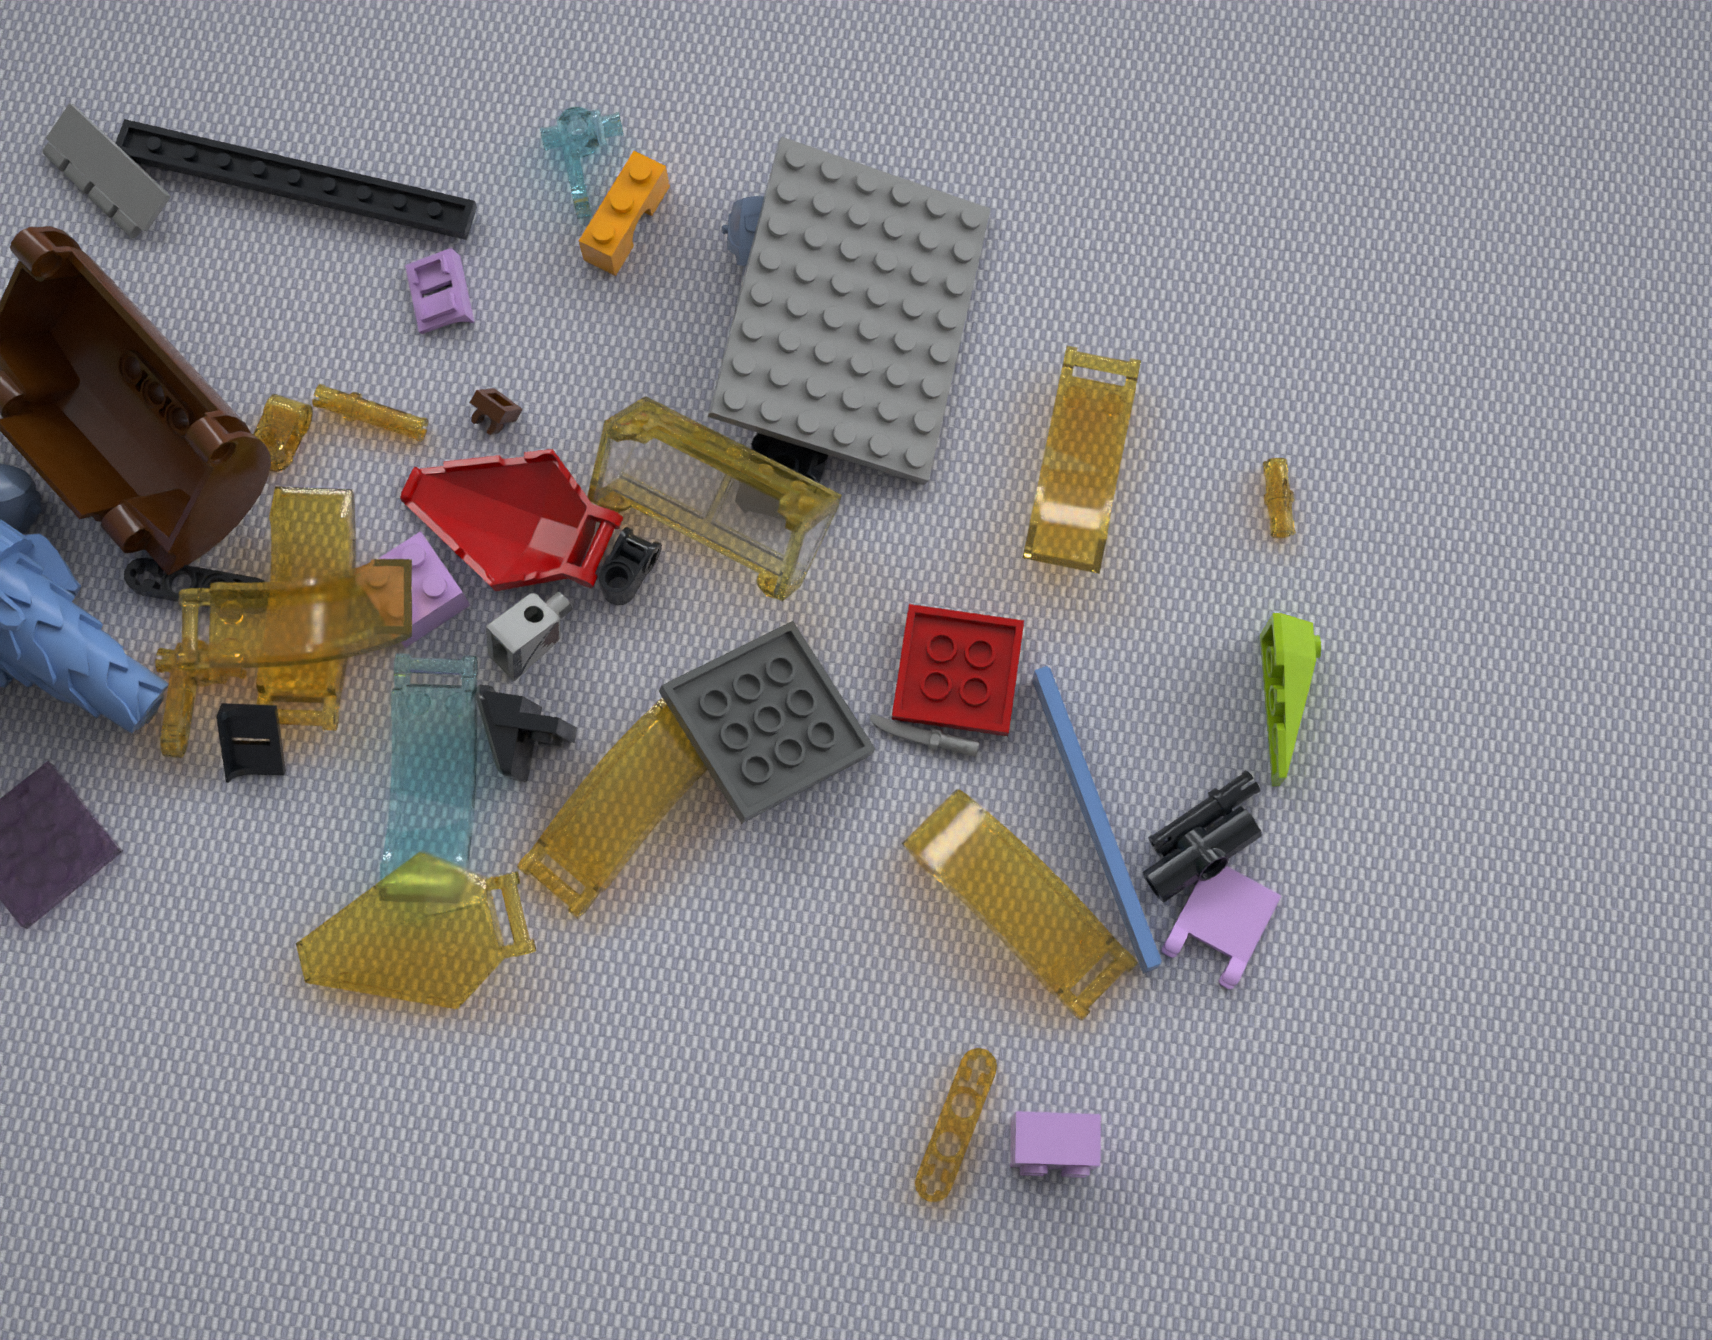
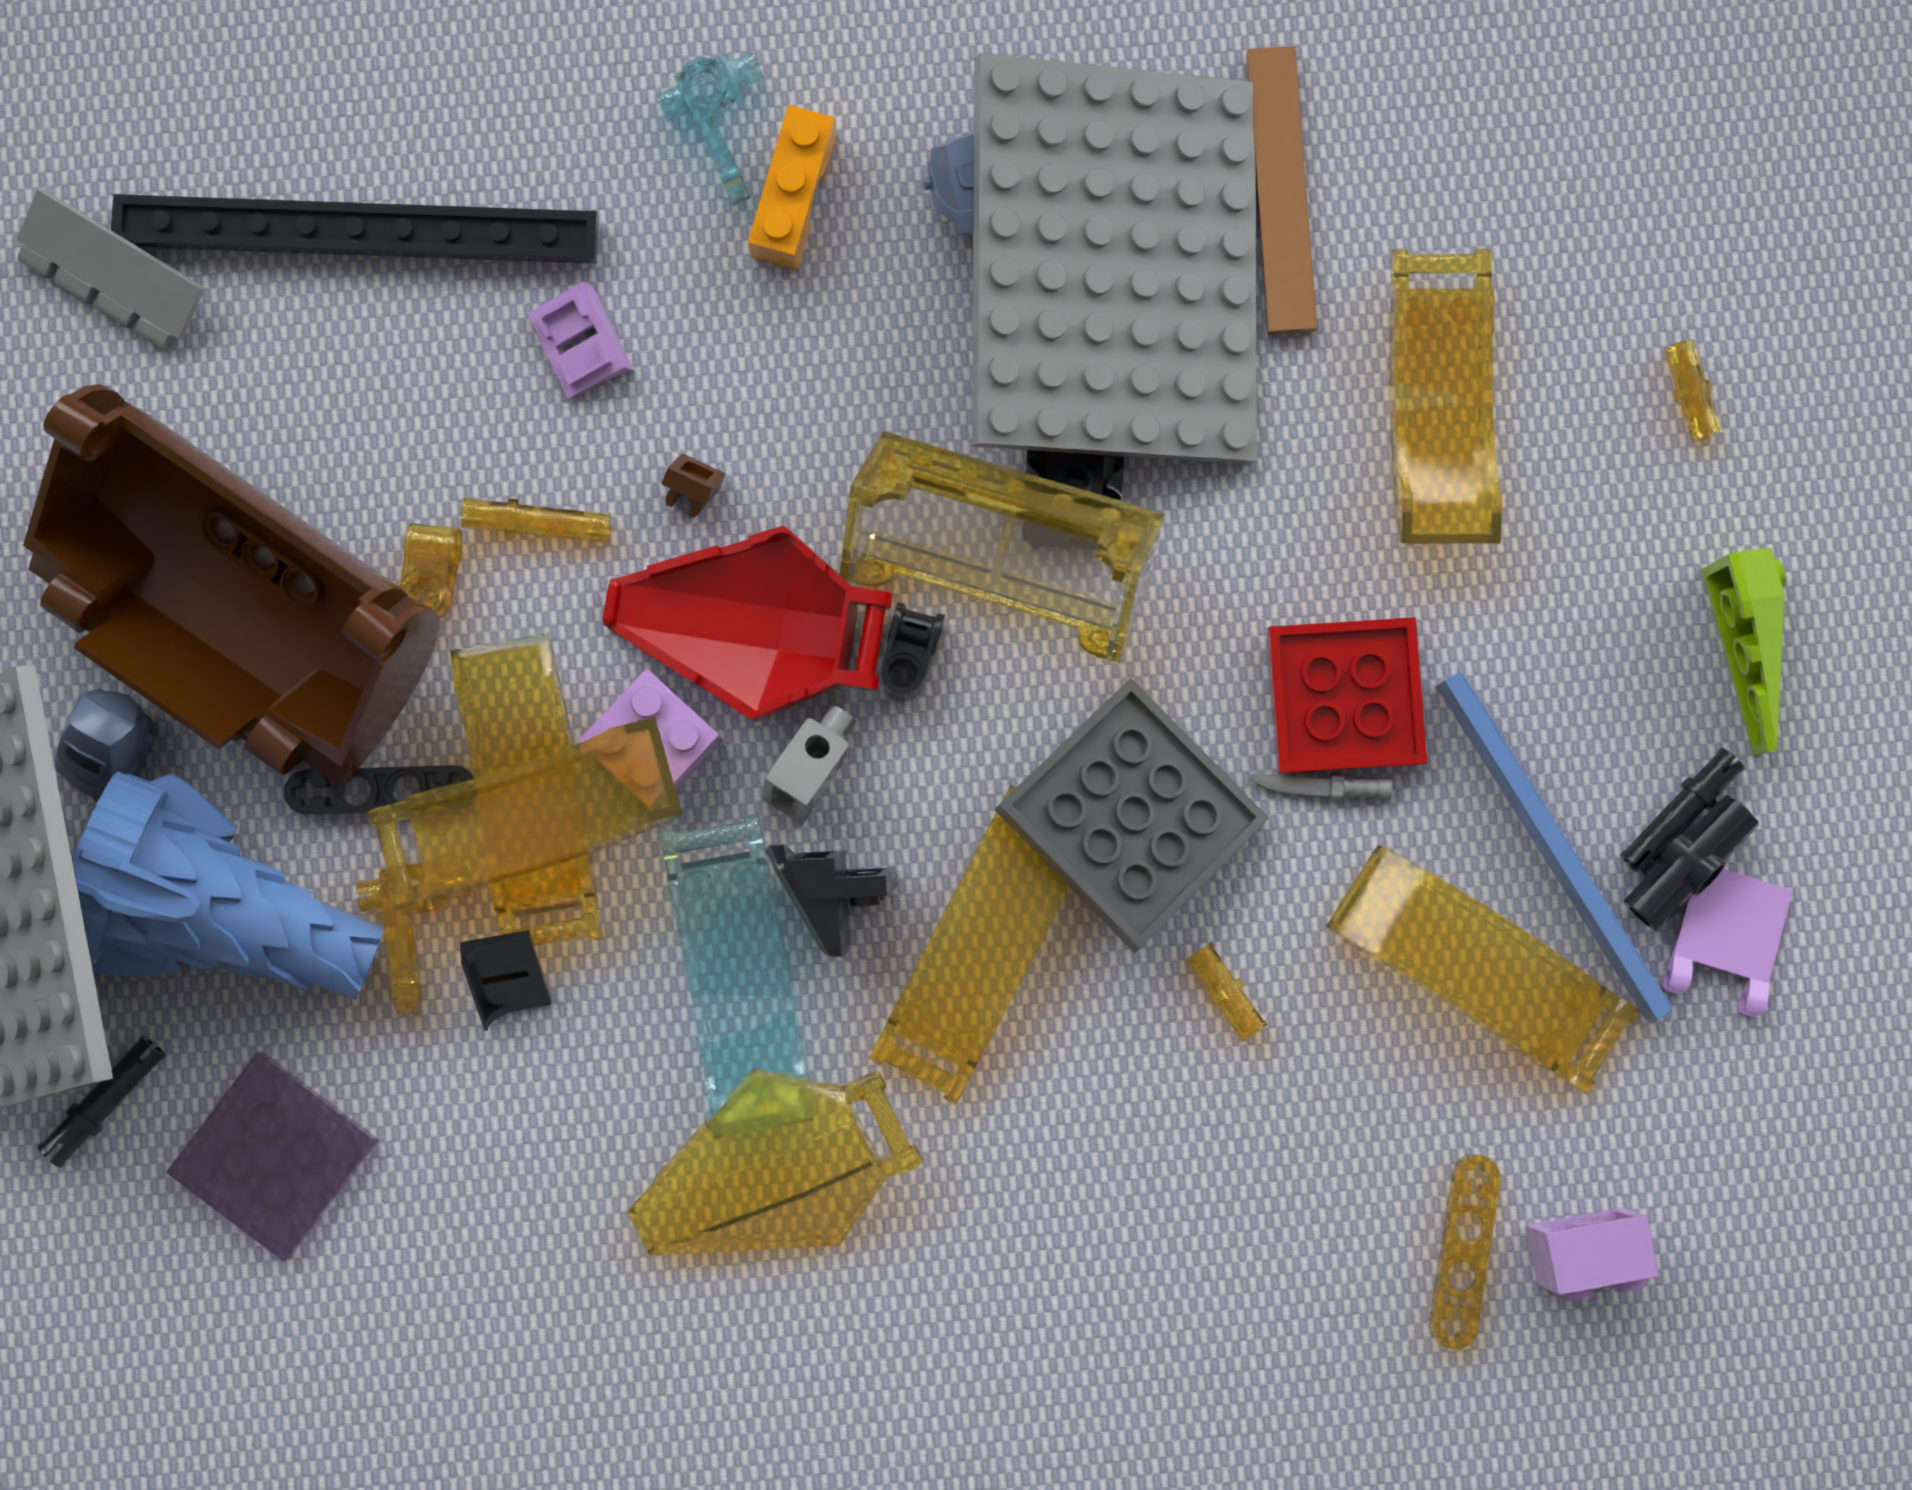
camera: 15 degrees left, 10 degrees up
(811, 877) = (1226, 992): none -> clear yellow pin
(993, 291) = (1281, 192): none -> medium nougat tile

